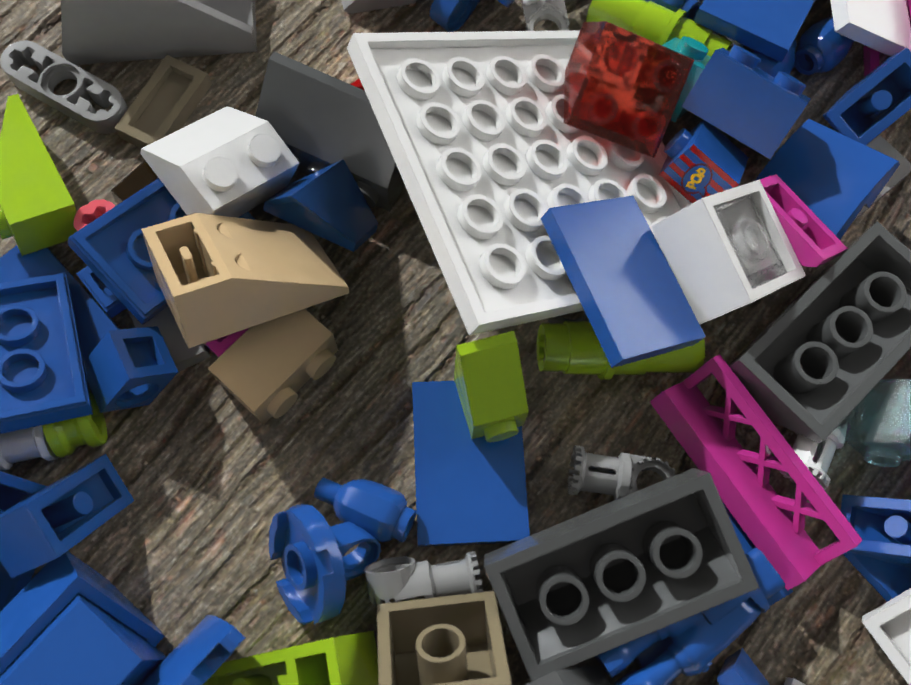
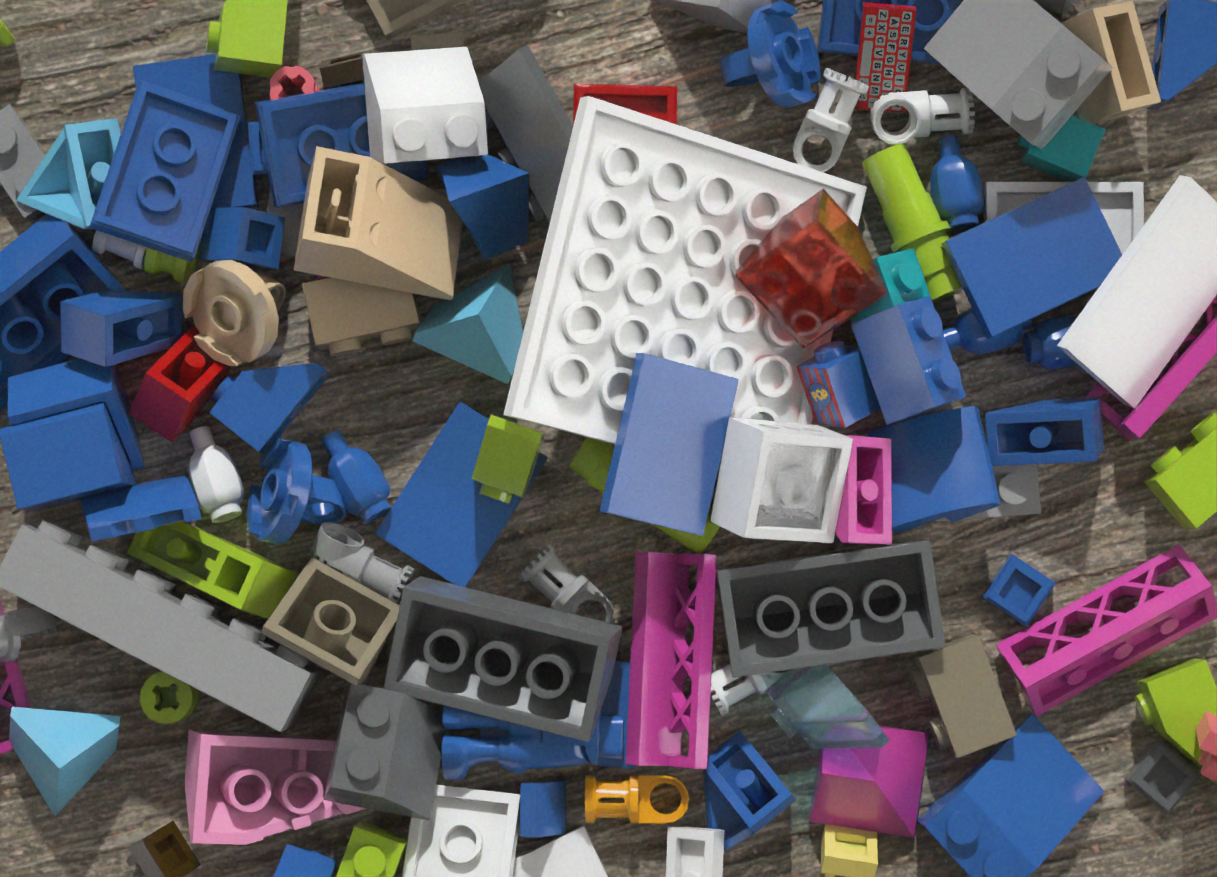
camera: 40 degrees right, 15 degrees up
(151, 530) = (178, 387): none -> red slope
(157, 431) = (233, 311): none -> tan tile
(238, 598) = (214, 478): none -> white plant
(240, 493) = (266, 400): none -> blue slope
(384, 314) = (478, 326): none -> medium azure slope
(812, 622) = (637, 800): none -> light orange connector

